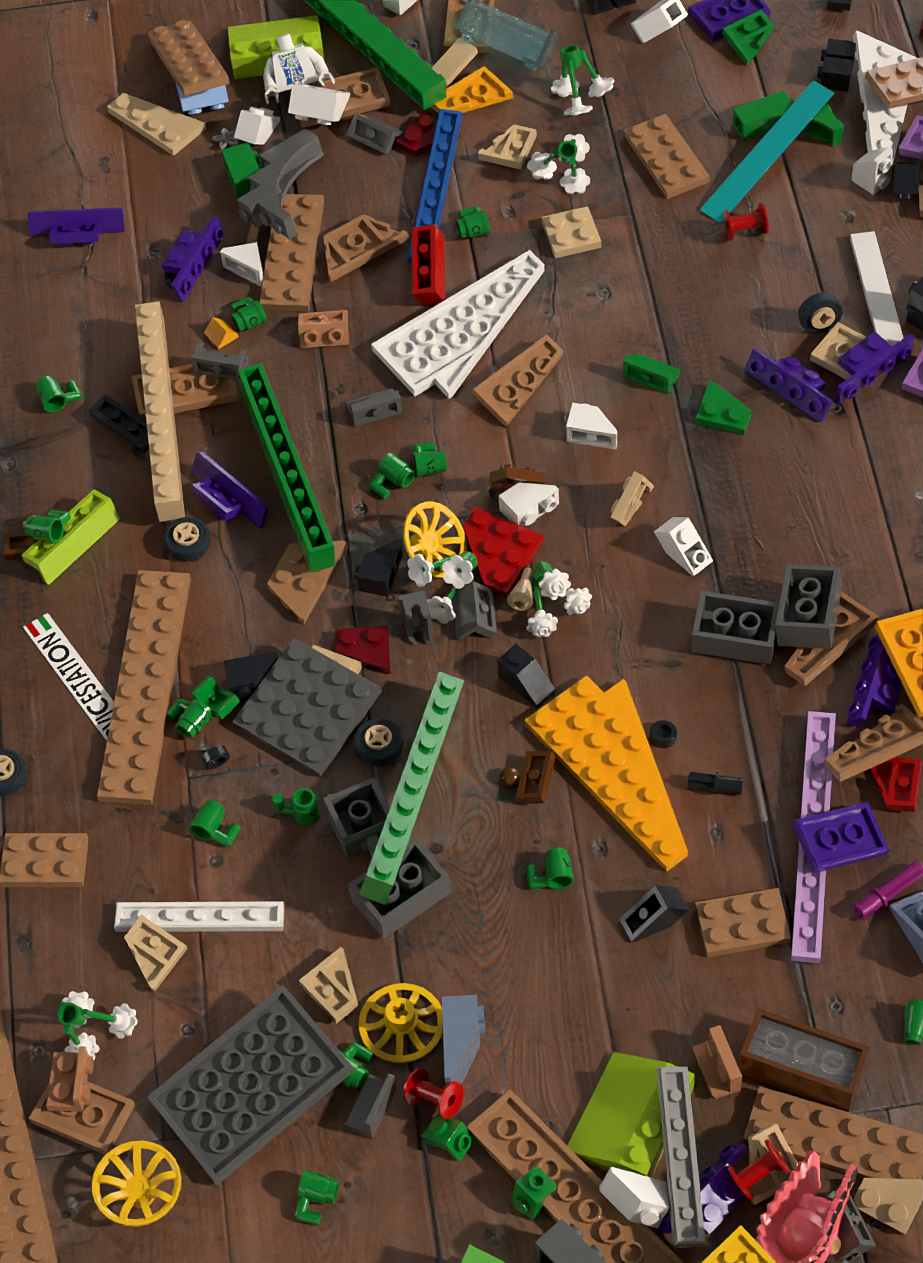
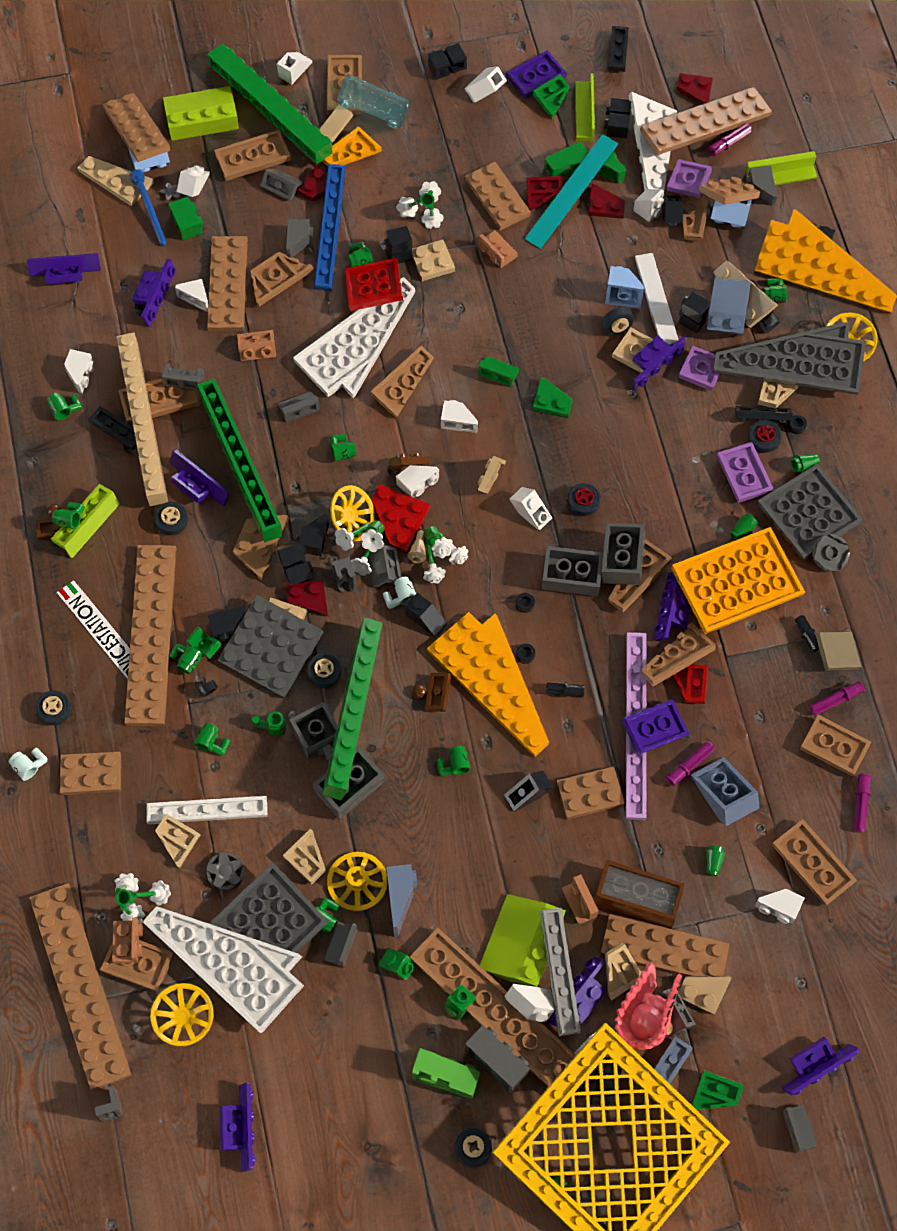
camera: 10 degrees left, 10 degrees up
(82, 347) = (78, 368): none -> white slope
(184, 119) = (137, 177): none -> blue piece
(217, 998) = (225, 871): none -> dark grey wheel
(220, 332) = (180, 351): light orange slope -> none
(224, 1125) = (239, 968): none -> white wing
(247, 314) = (201, 337): green piece -> none
(270, 184) = (207, 230): dark grey arch -> none
(293, 66) = (216, 133): white torso -> none
(314, 1188) = (307, 1008): green piece -> none
(317, 103) = (237, 162): white slope -> none
(353, 611) = (294, 562): none -> black piece
(391, 195) = (298, 236): none -> dark grey slope
(395, 471) = (317, 457): green piece -> none
(428, 265) = (330, 293): red brick -> none
(447, 1098) = (374, 930): red piece -> none
(488, 257) = (373, 284): none -> red plate
(498, 643) = (404, 591): none -> light aqua piece
(510, 148) = (383, 192): tan wing -> none
(525, 209) = (399, 245): none -> black piece
(571, 59) = (420, 140): plant -> none
(660, 220) = (497, 248): none -> nougat bracket
(667, 668) = (525, 602): none -> black tile
(727, 150) = (542, 190): none -> dark red wing
(756, 219) = (565, 247): red piece -> none
(759, 1169) = (614, 977): red piece -> none
(765, 530) = (586, 493): none -> black wheel
(792, 55) = (585, 110): none -> lime panel
(792, 382) = (599, 375): dark purple bracket -> none
(813, 170) = (605, 203): none -> dark red wing
(831, 271) = (624, 288): none -> light blue slope

